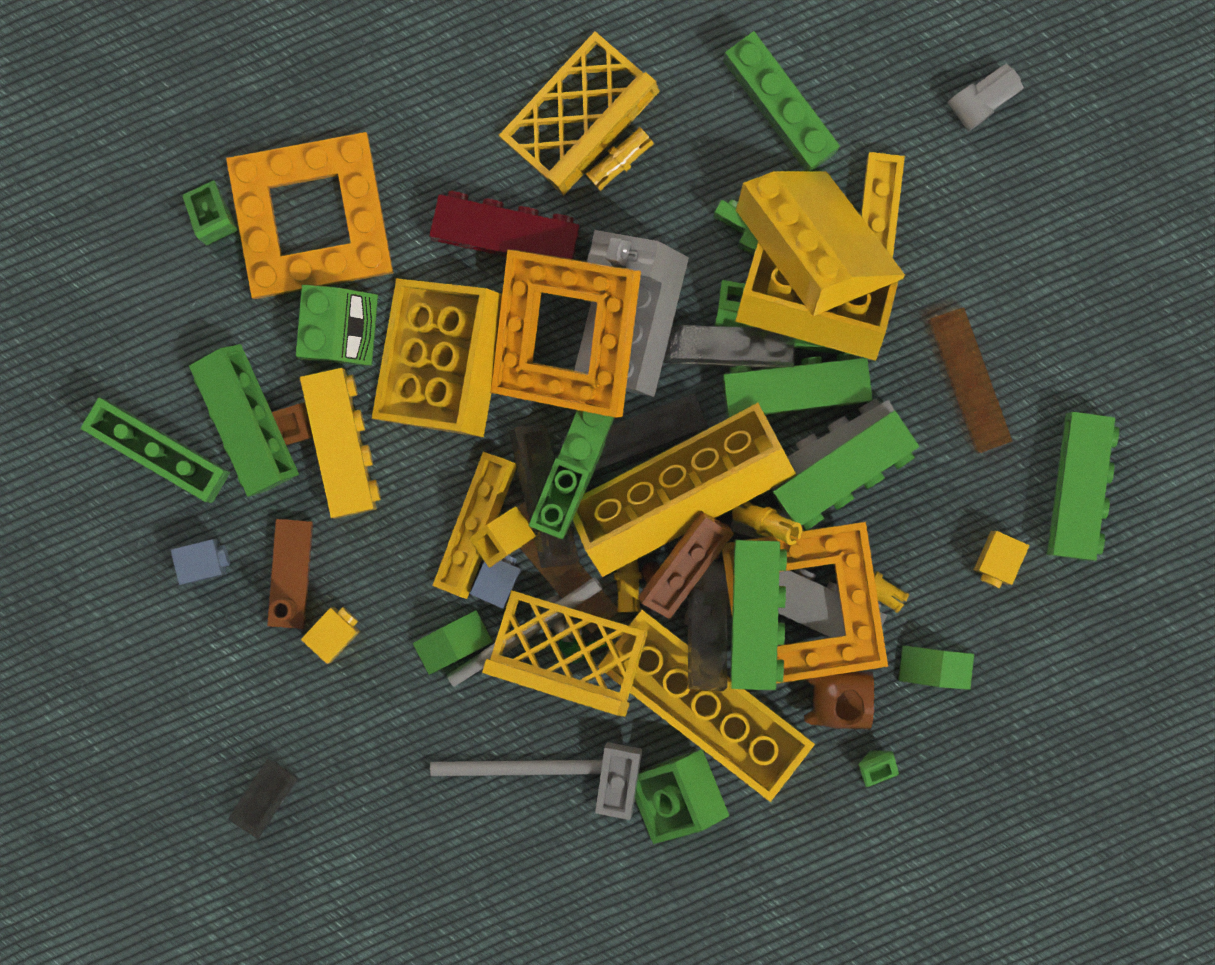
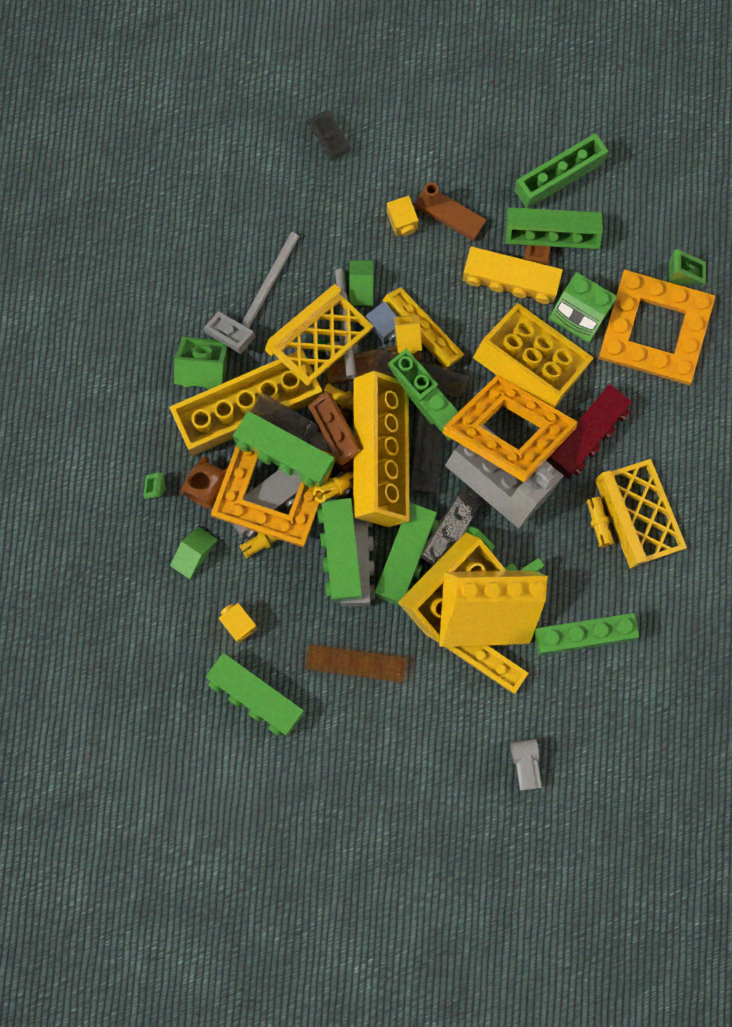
camera: 115 degrees right, 10 degrees down
(200, 561) = (483, 165): sand blue brick -> none

